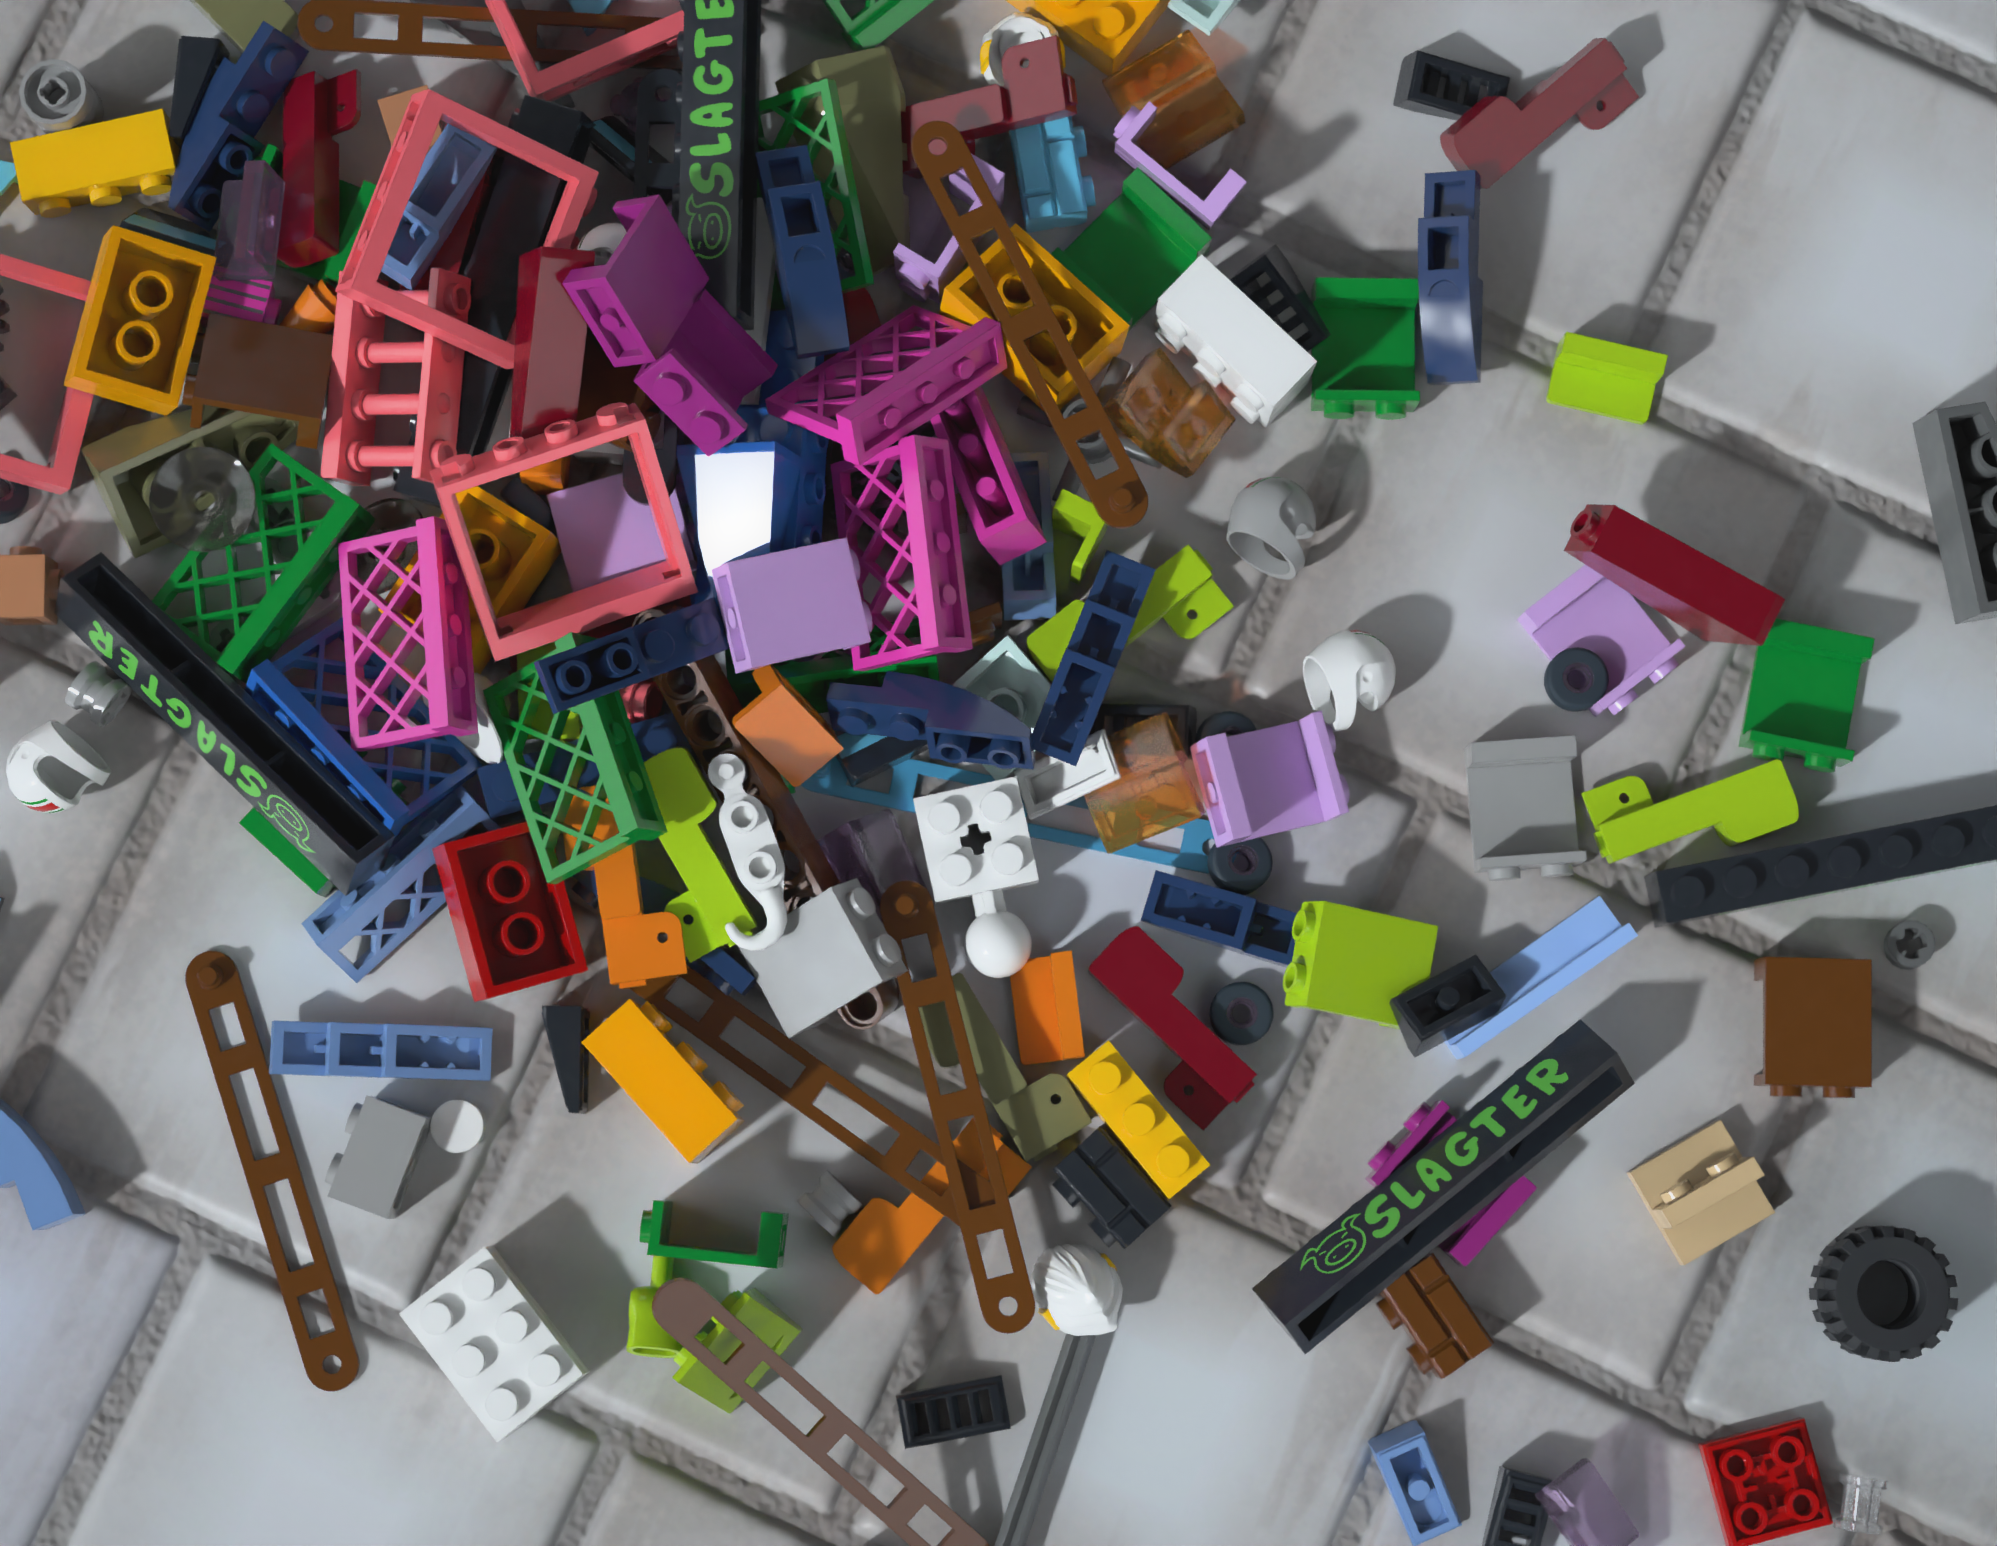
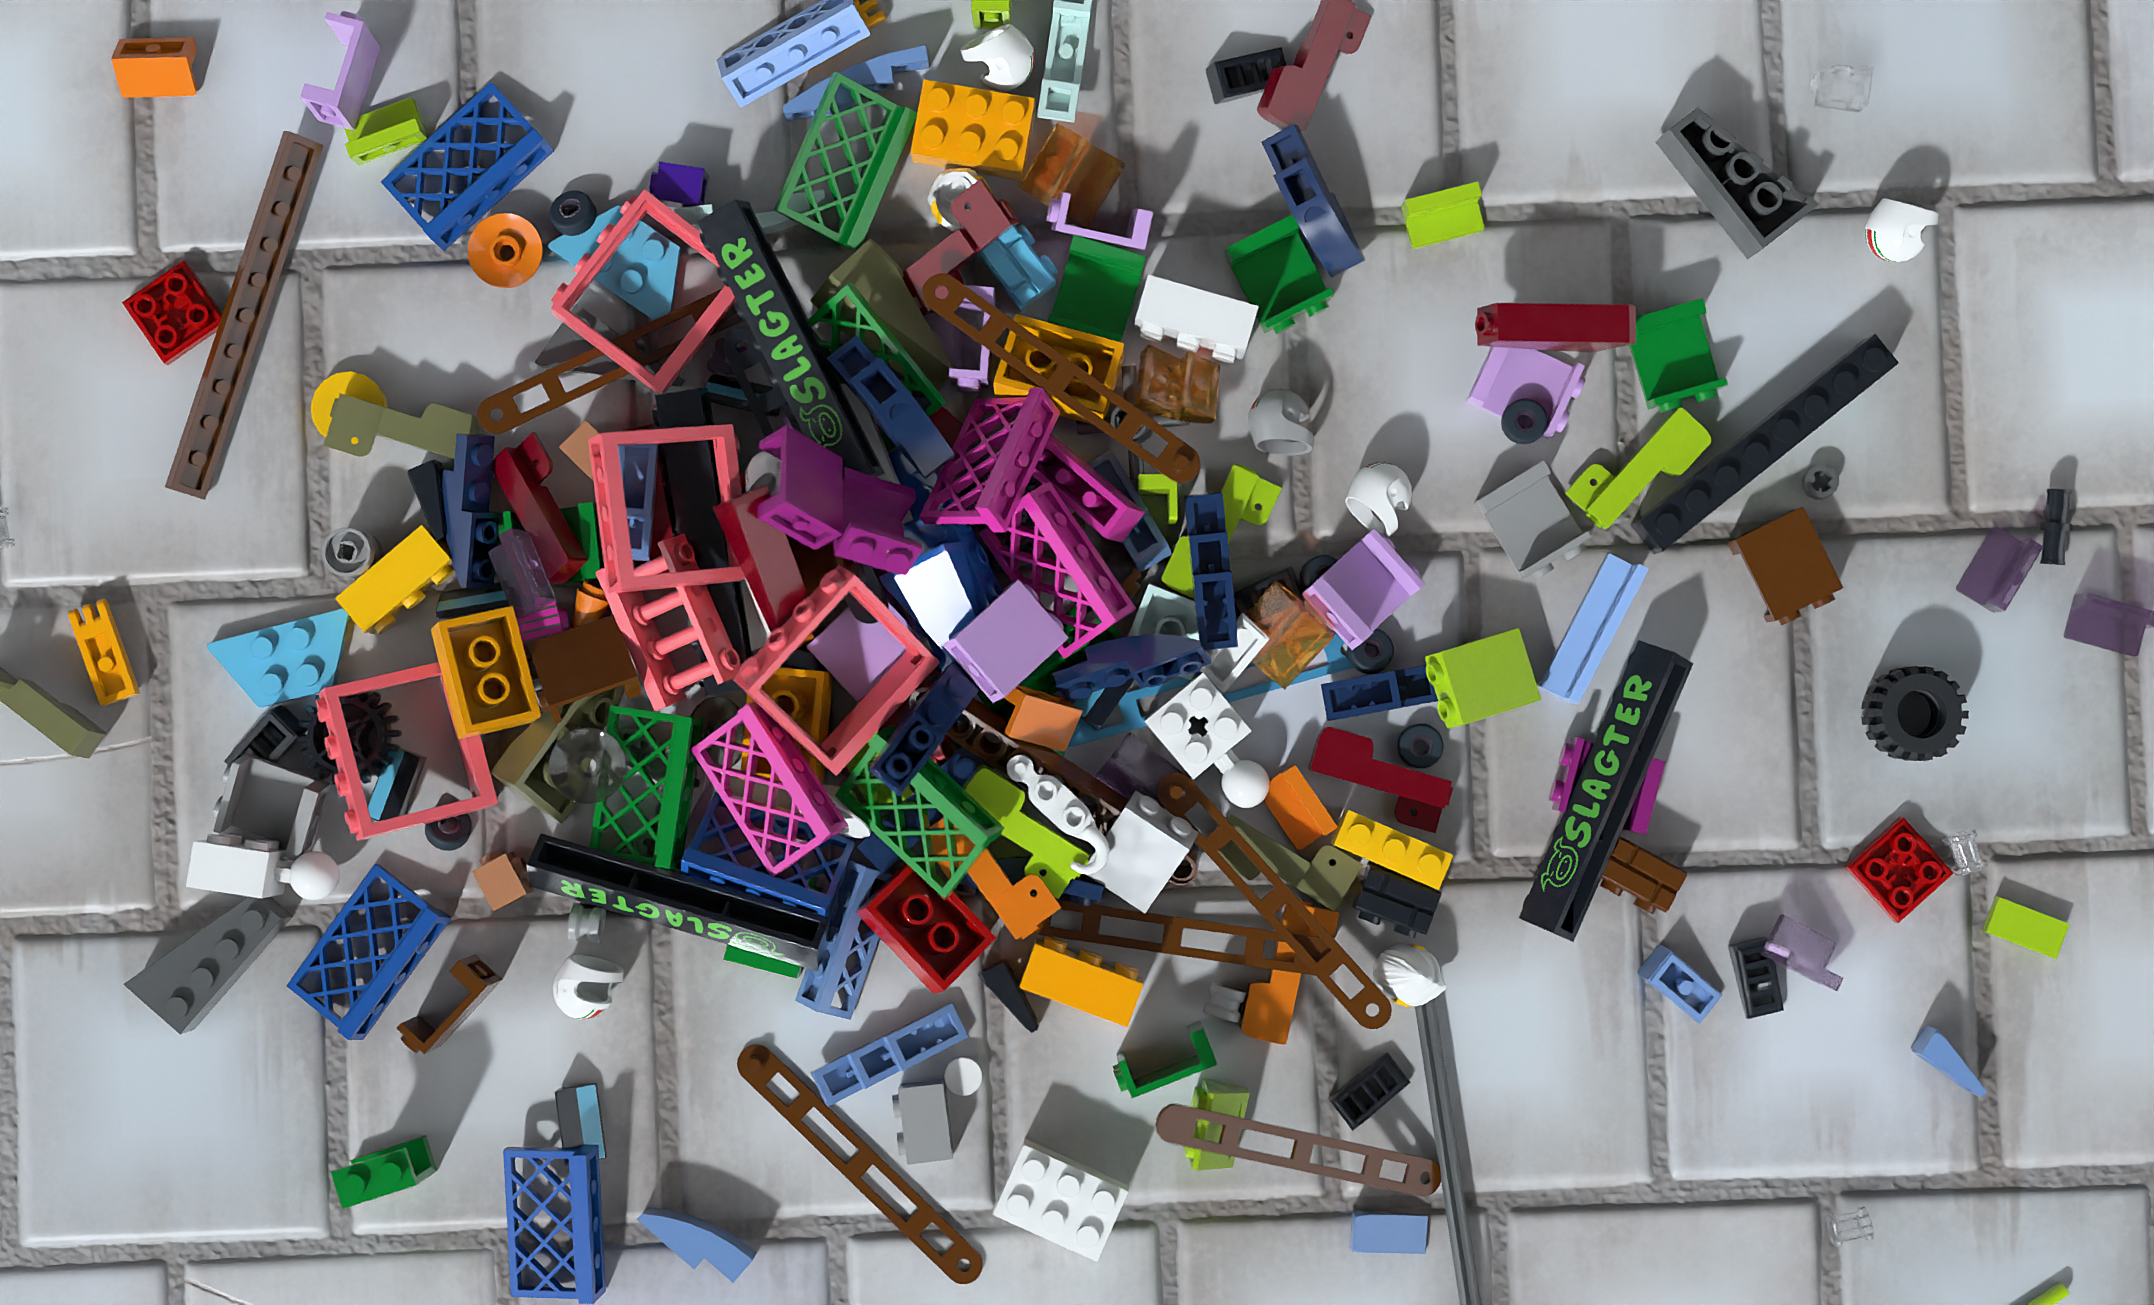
camera: 25 degrees left, 5 degrees up
(645, 1334) = (1144, 1129): lime piece -> none
(1287, 282) = (1205, 258): black slope -> none
(1446, 1005) = (1549, 675): black slope -> none
(1701, 1192) = (1767, 707): tan bracket -> none

